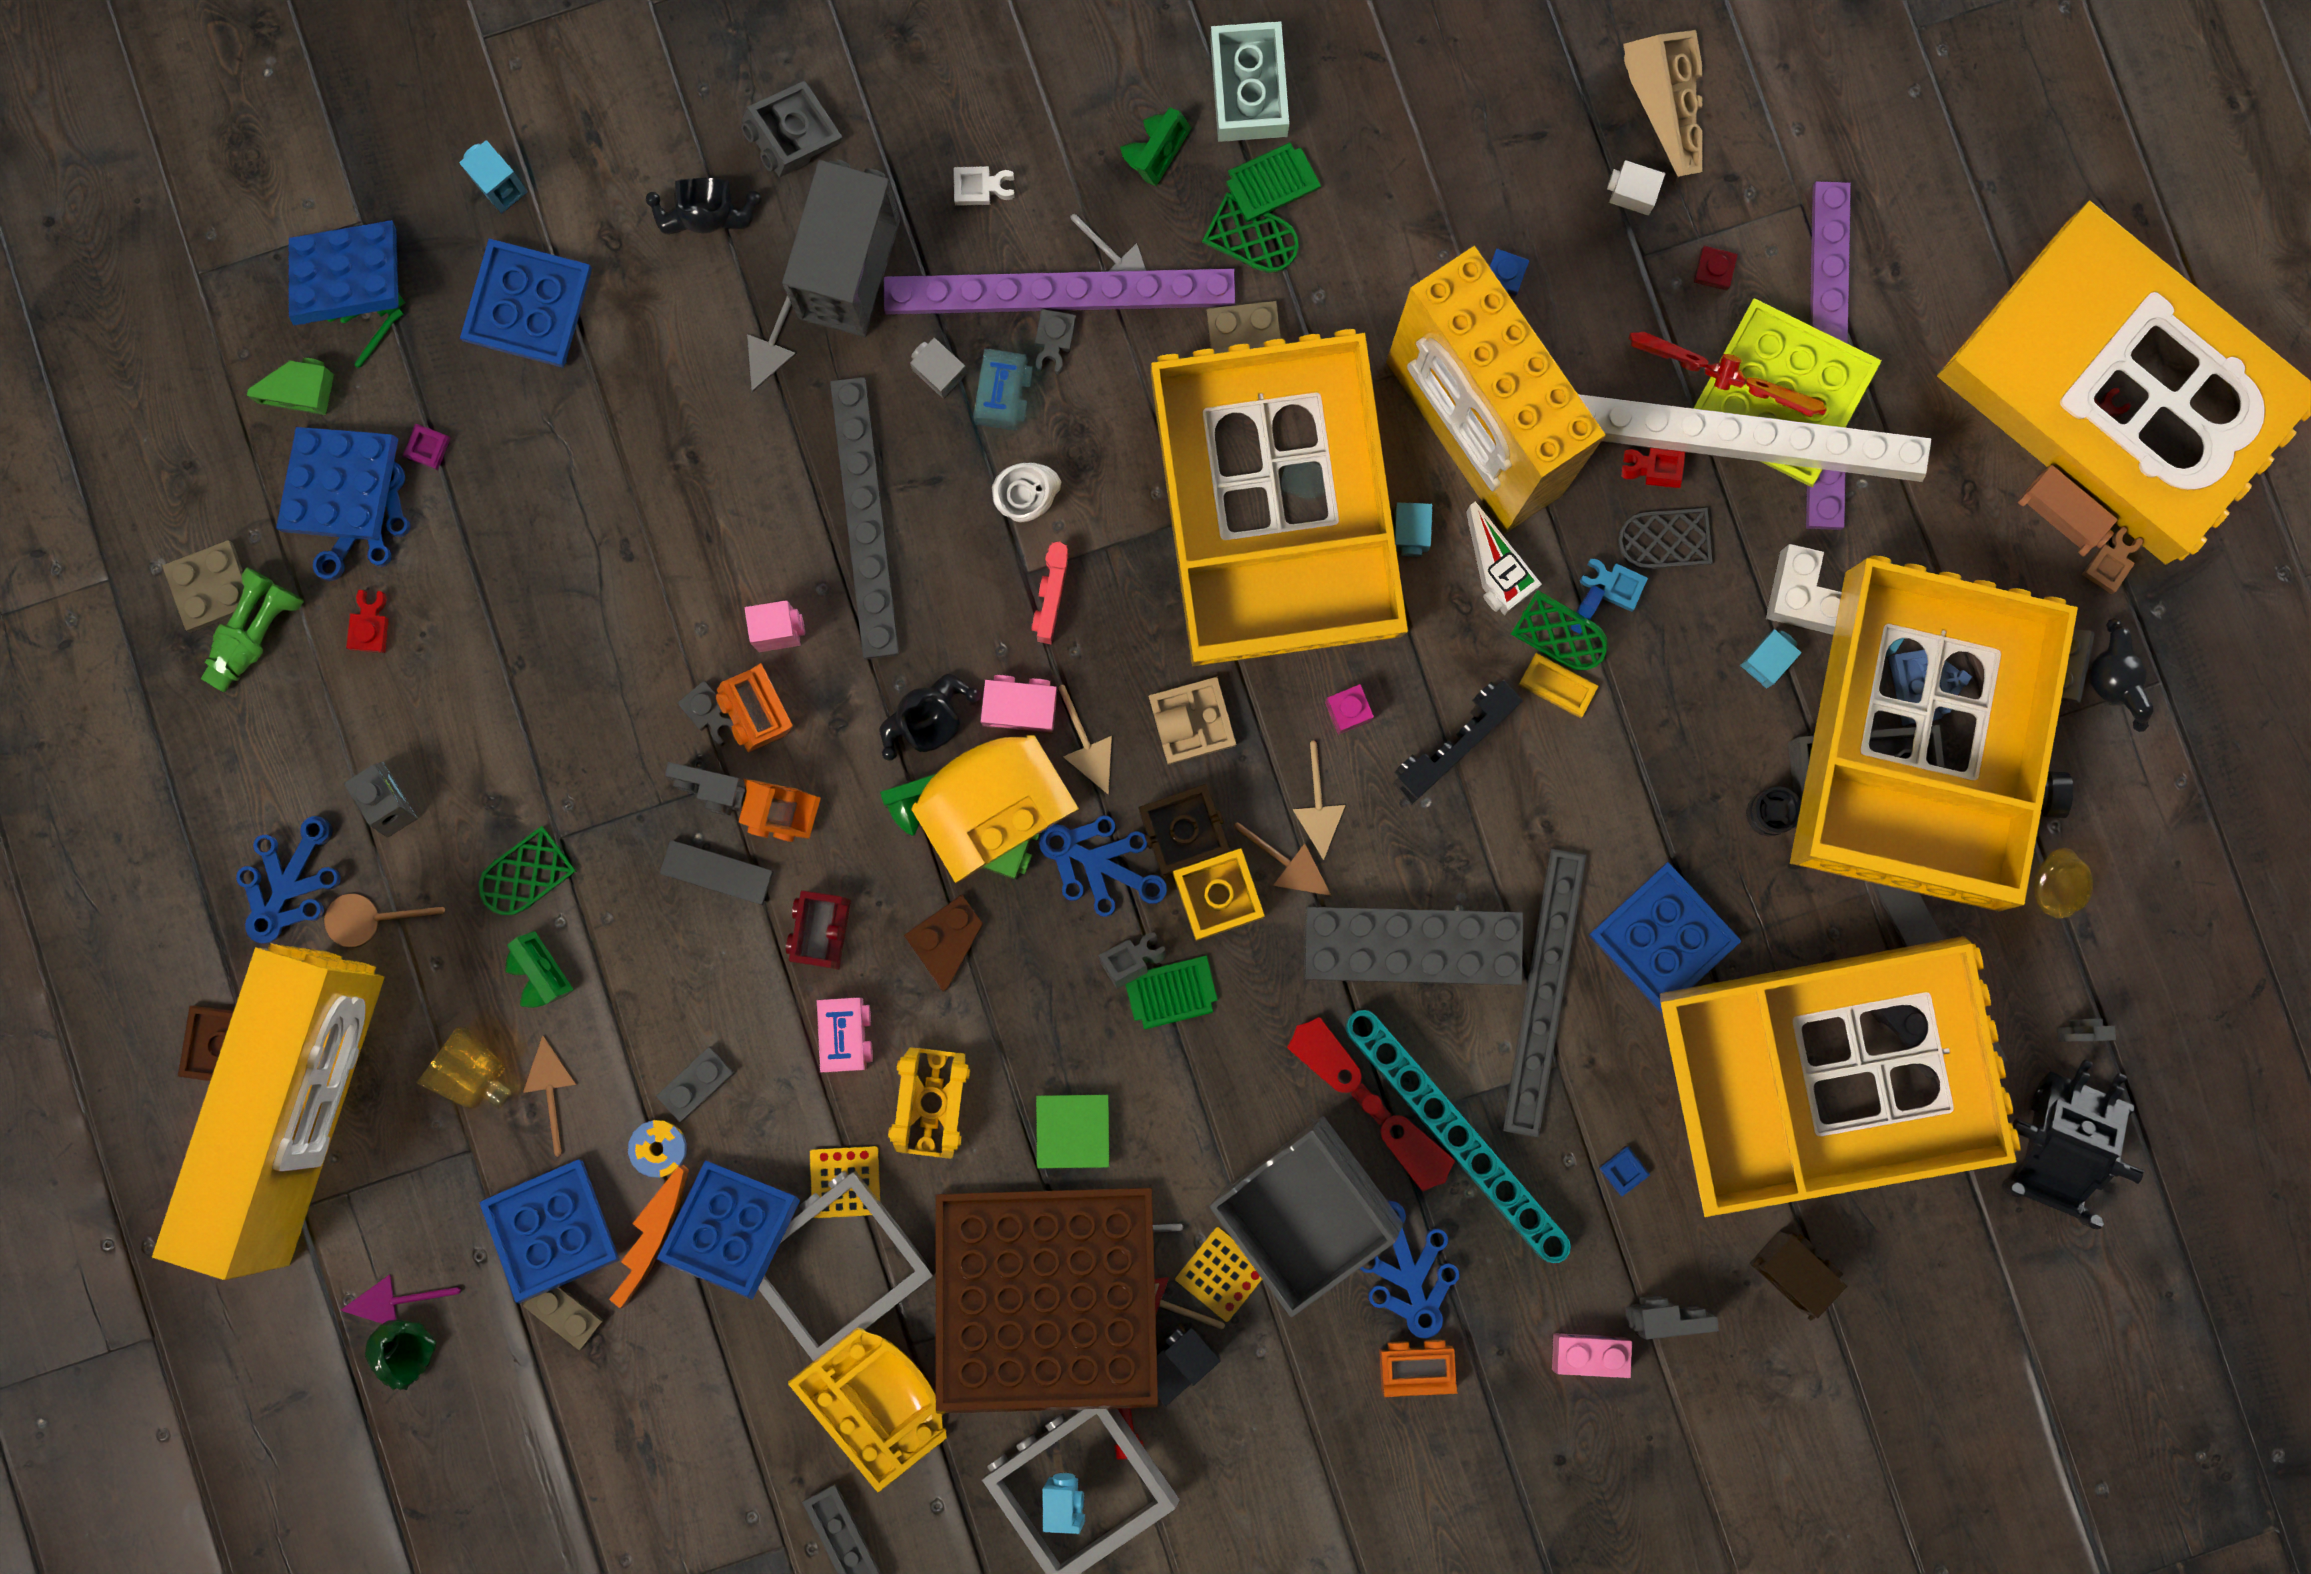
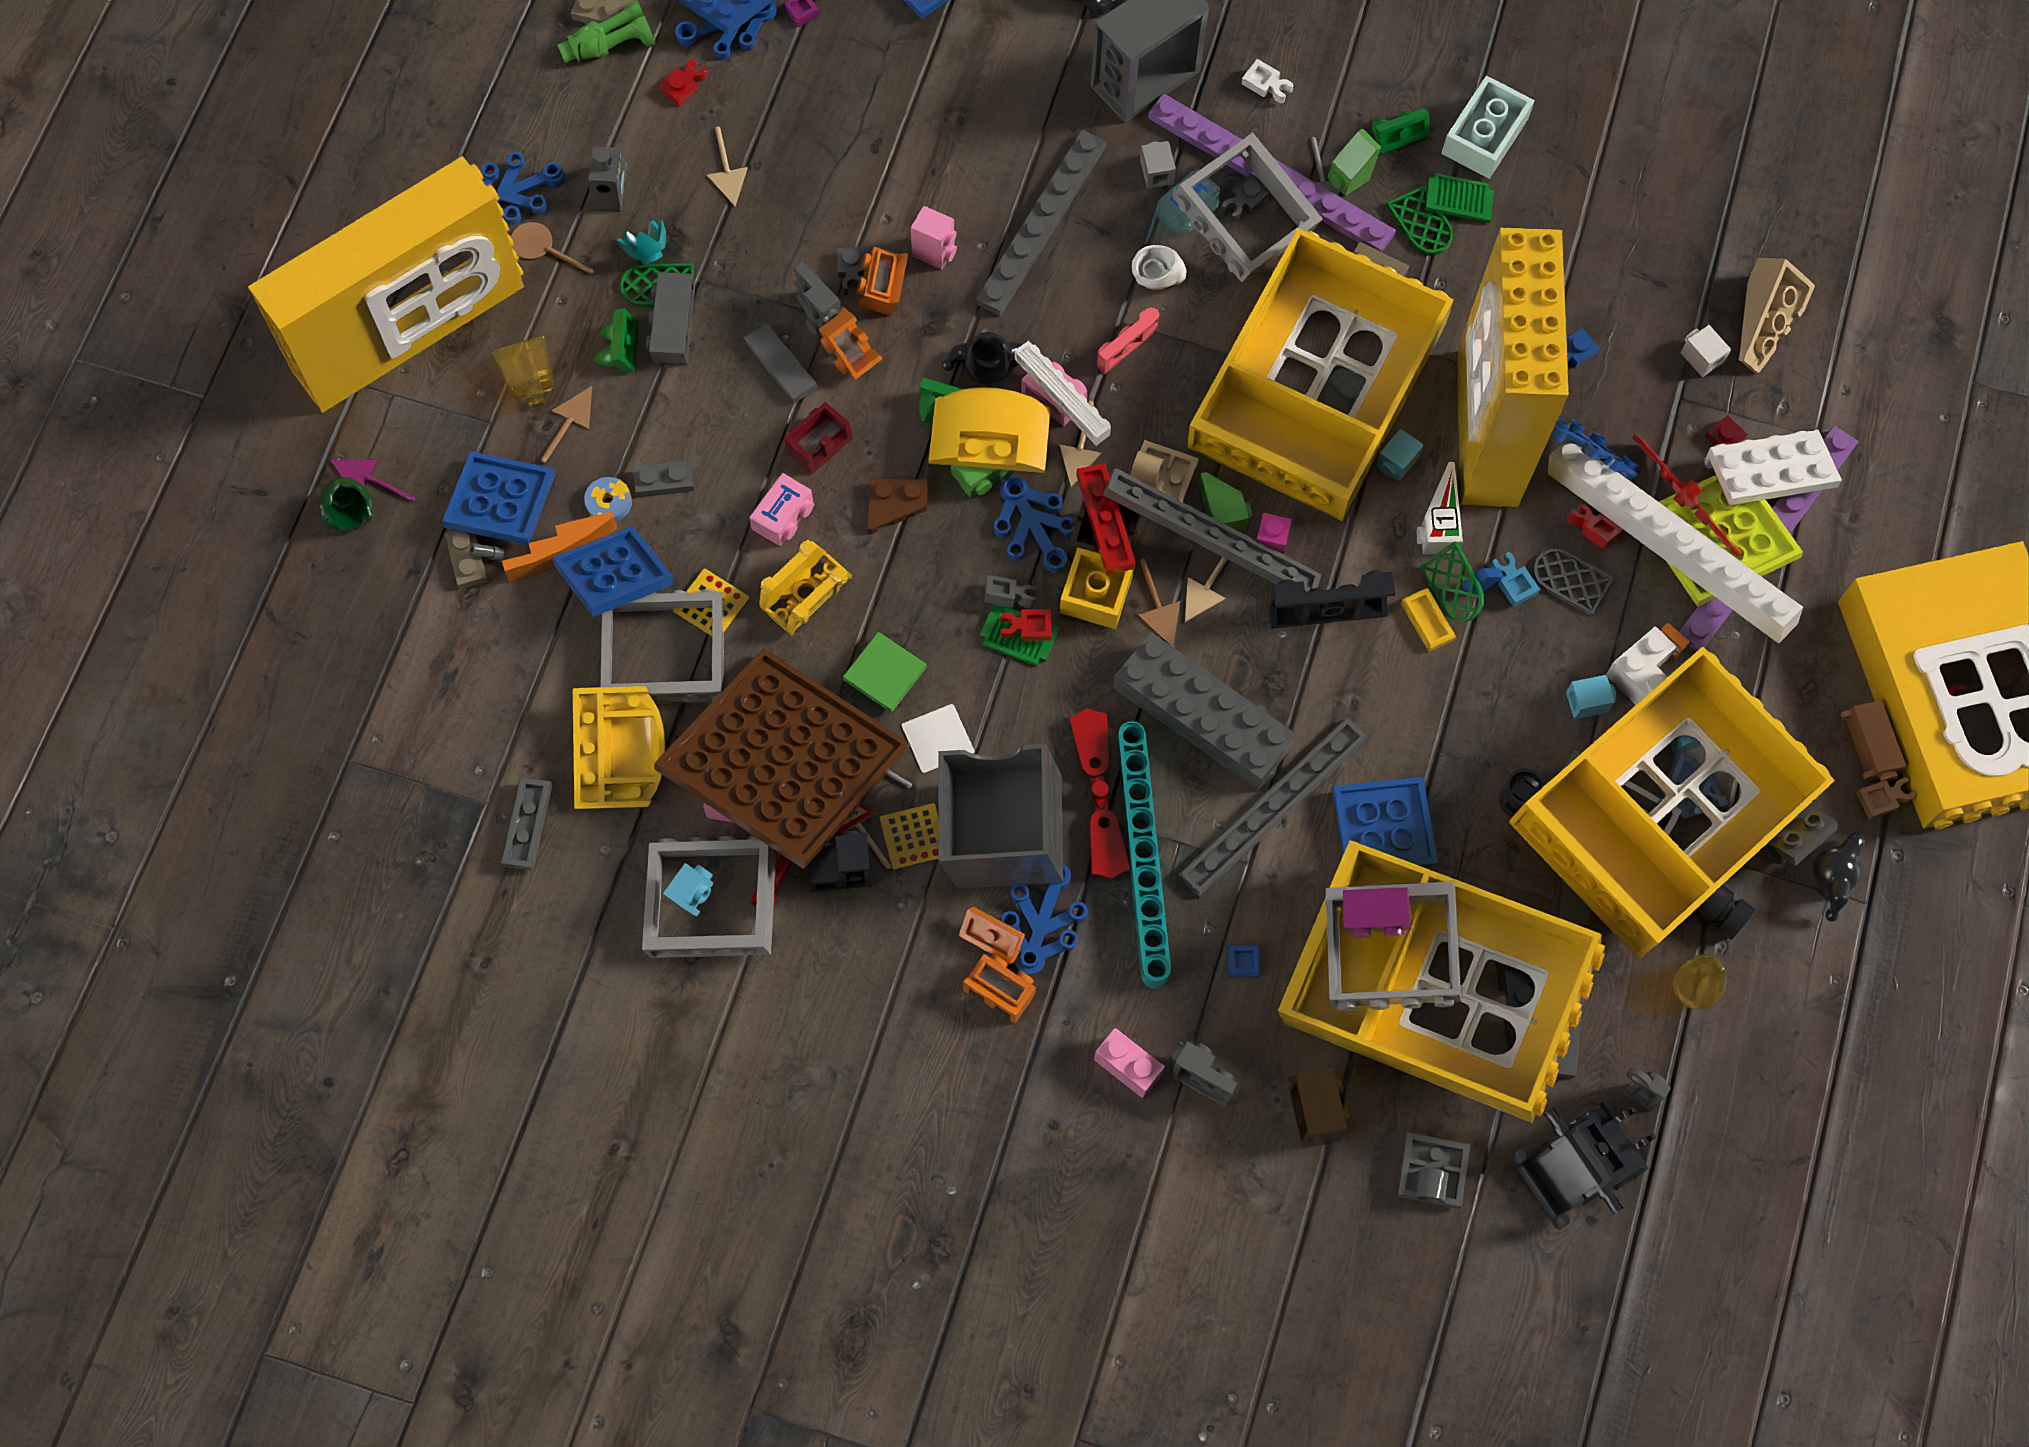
camera: 35 degrees right, 15 degrees down
(480, 849) = (645, 247): none -> teal piece
(504, 702) = (729, 181): none -> tan piece
(569, 908) = (671, 318): none -> dark grey brick
(587, 1290) = (492, 552): none -> dark grey piece
(765, 356) = (1053, 94): light grey piece -> none
(1035, 710) = (1062, 392): none -> white piece
(1086, 308) = (1275, 181): none -> light grey window
(1143, 227) = (1354, 163): none -> bright green slope
(1171, 1157) = (934, 733): none -> white sticker
(1181, 977) = (1033, 625): none -> red plate
(1182, 825) = (1105, 520): none -> red plate
(1277, 710) = (1224, 502): none -> bright green slope
(1294, 760) = (1207, 531): none -> dark grey plate
(1373, 1325) = (991, 935): none -> orange plate
(1639, 380) = (1595, 447): none -> blue plant
(1748, 1074) = (1377, 911): none -> magenta brick
(1790, 279) = (1773, 467): none -> white bracket
(1802, 1146) = (1419, 893): none -> light grey window
(1810, 539) = (1676, 638): none -> orange tile
(1939, 1250) = (1433, 1170): none -> dark grey plate

